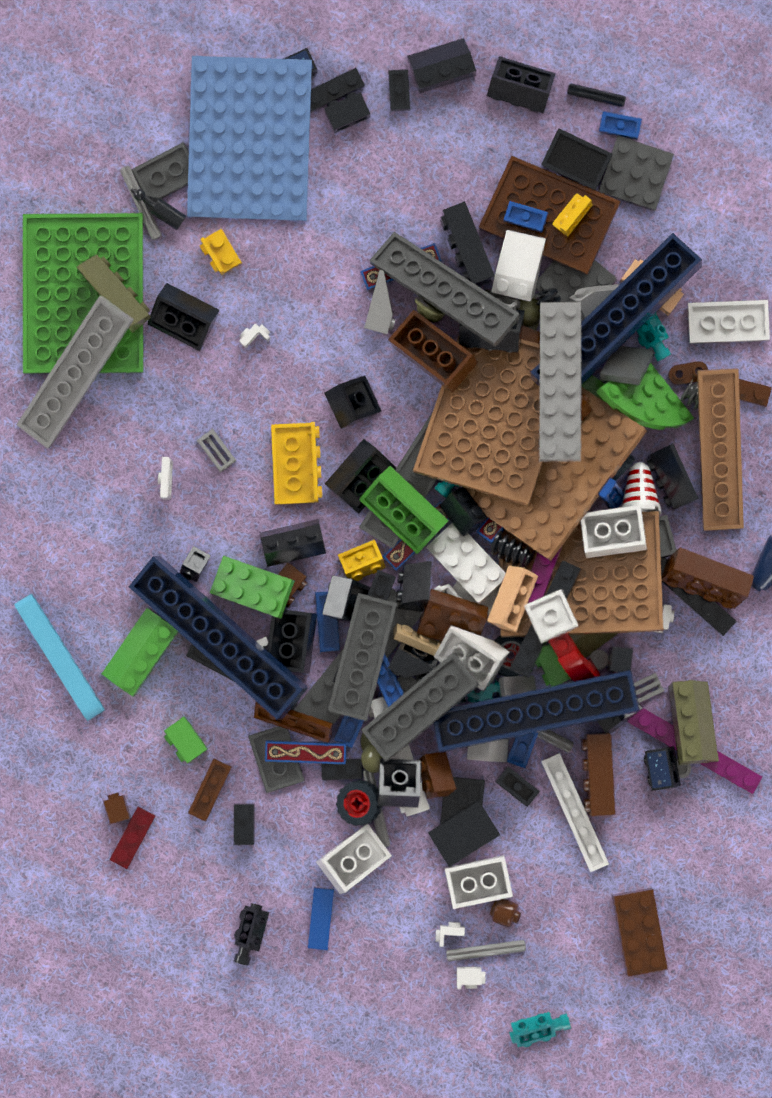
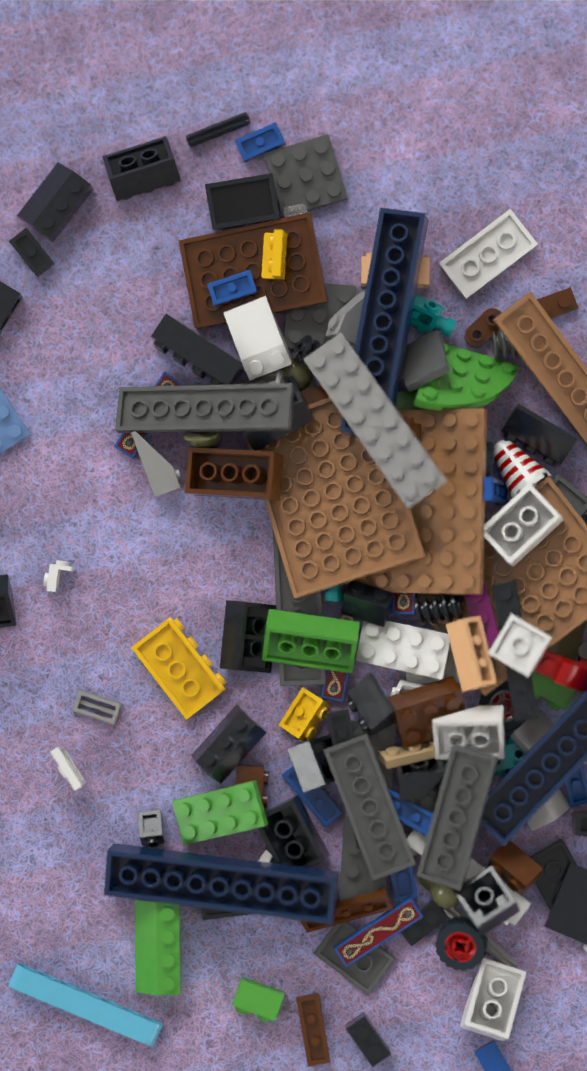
camera: 30 degrees left, 0 degrees up
(352, 401) = (192, 572): black slope -> none
(610, 191) = (293, 210): none -> clear tile

